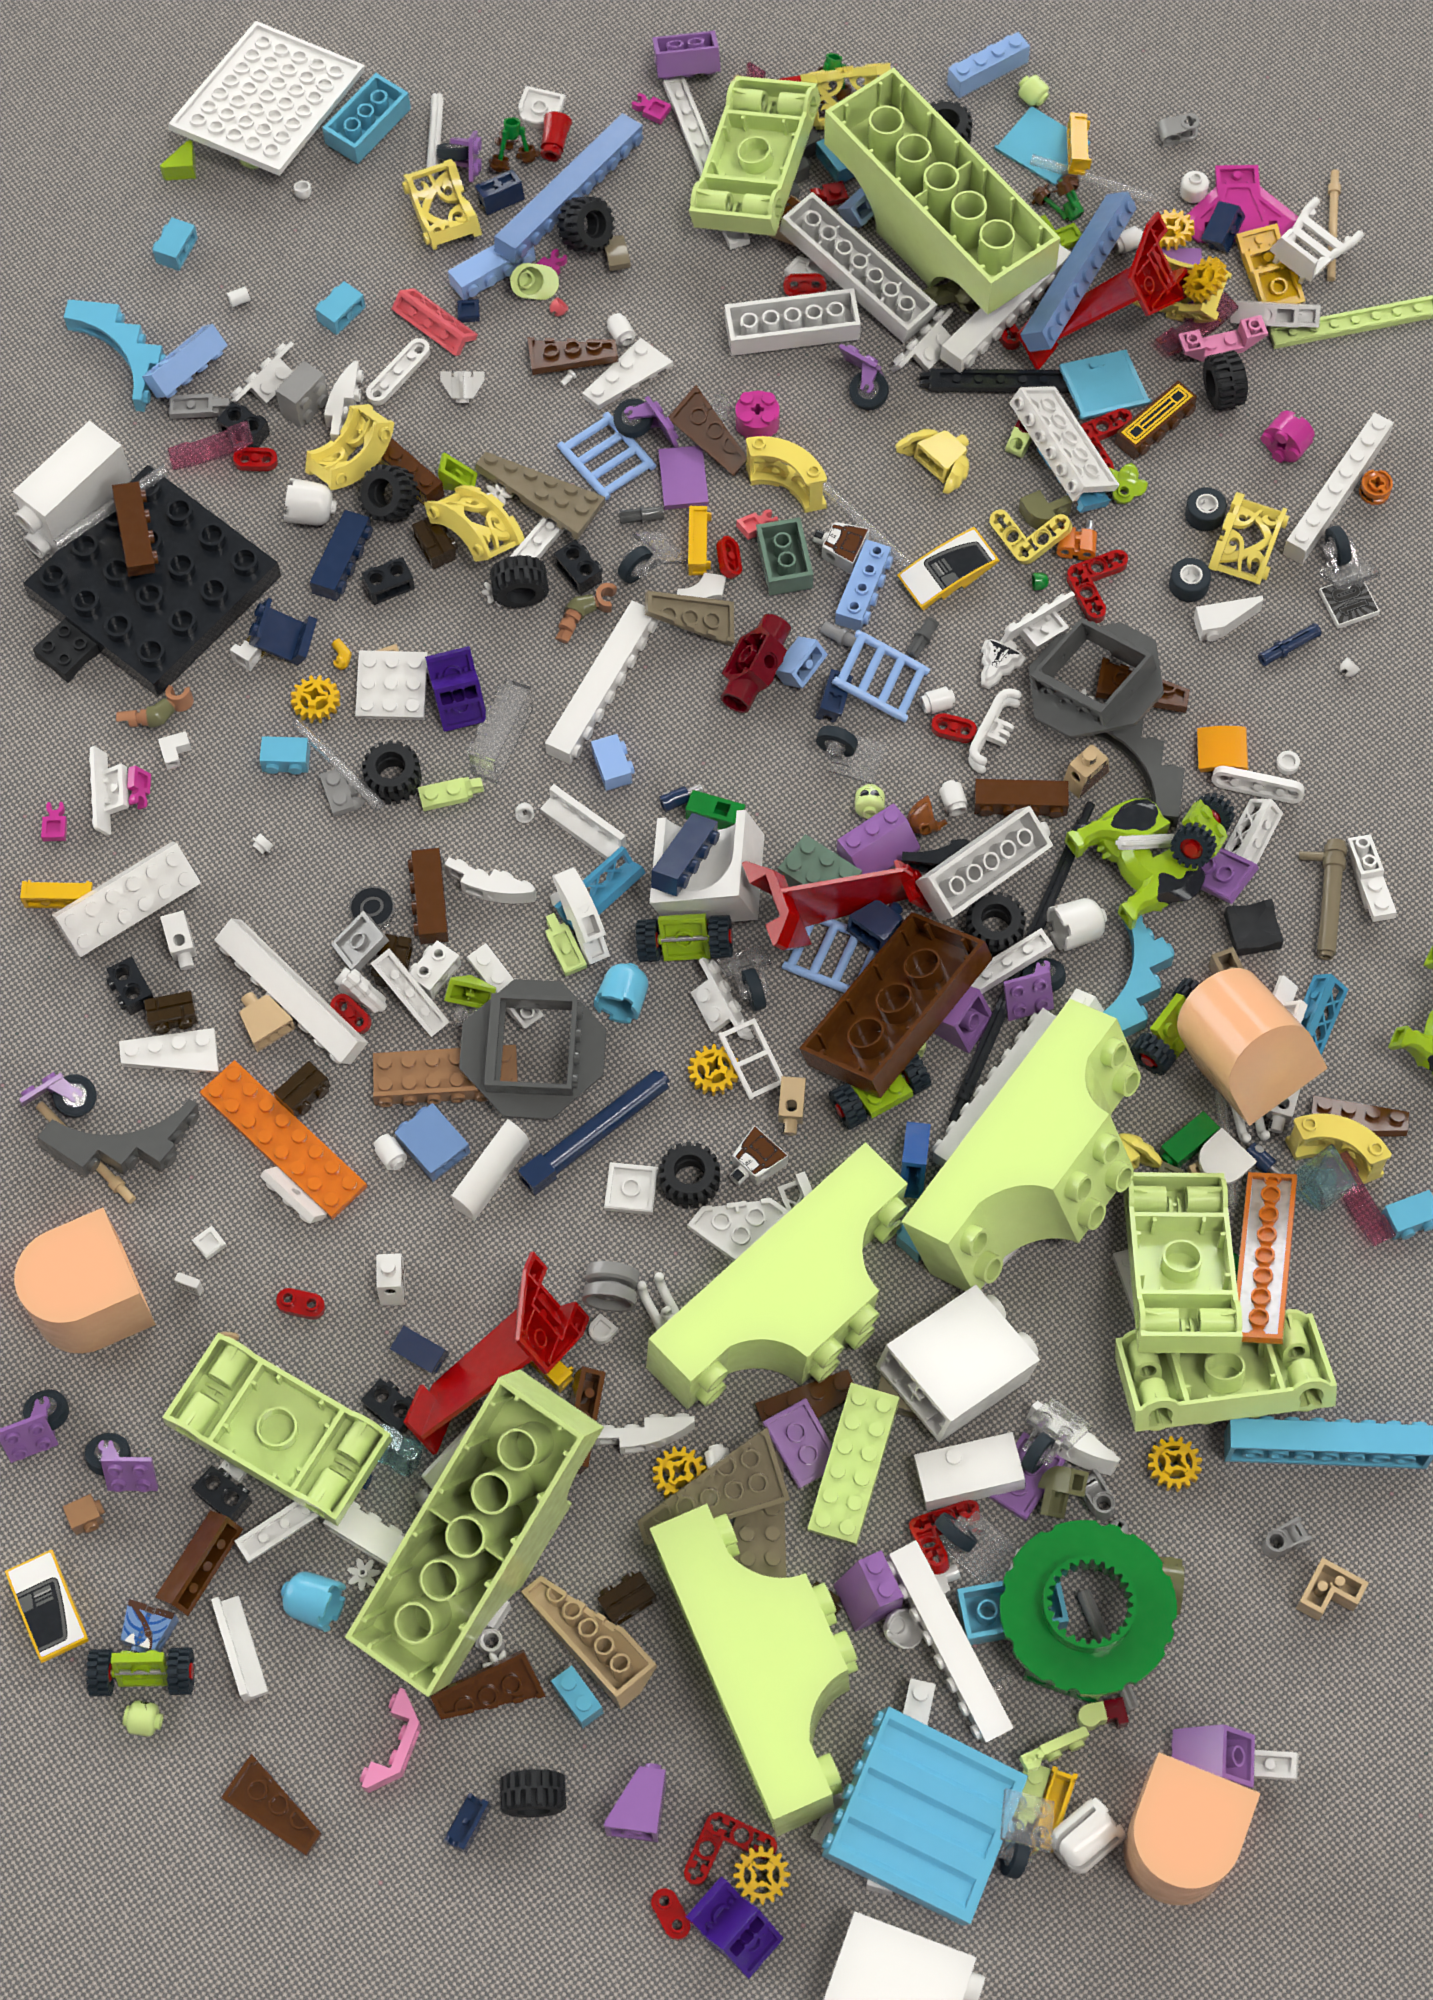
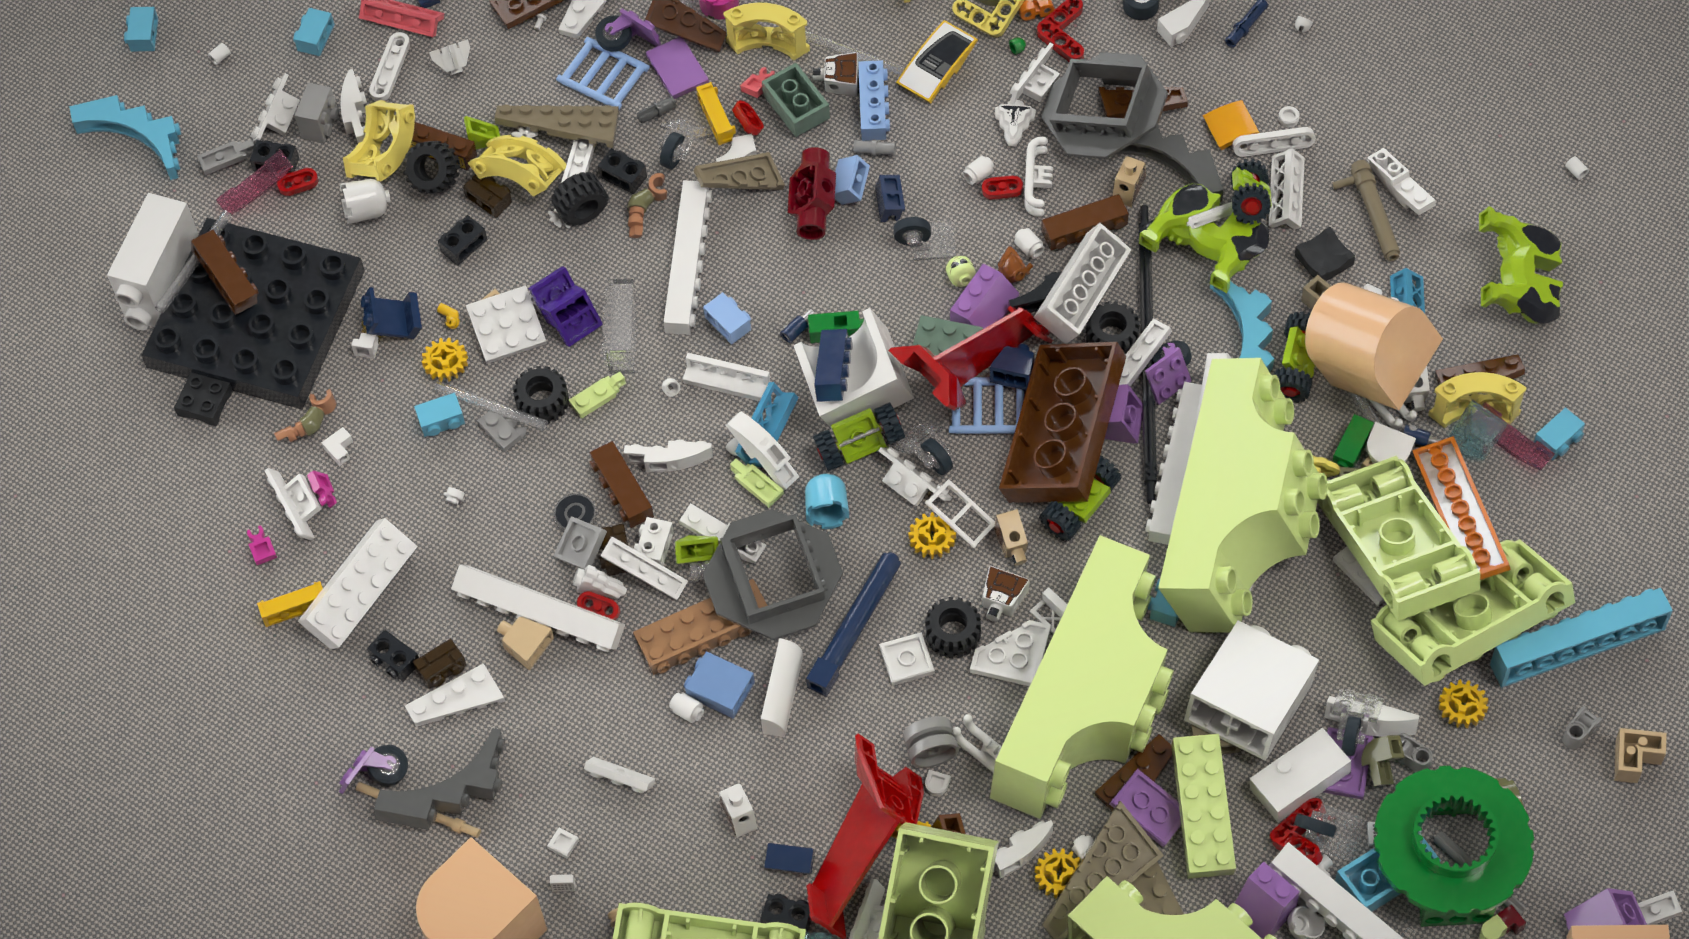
camera: 20 degrees left, 5 degrees down
(178, 933) = (419, 599): white torso -> none
(184, 361) = (198, 122): light blue brick -> none
(283, 1139) = (587, 732): orange piece -> none
(299, 1303) = (667, 863): red plate -> none
(303, 1089) = (586, 684): dark brown brick -> none
(341, 555) = (411, 234): dark blue brick -> none
(901, 660) = (912, 184): light blue bar -> none
(915, 1158) = (1133, 534): blue slope -> none
(922, 637) = (941, 125): dark grey axle -> none
(1076, 923) = (1179, 304): white cylinder -> none
(1227, 875) = (1286, 220): medium lavender tile -> none

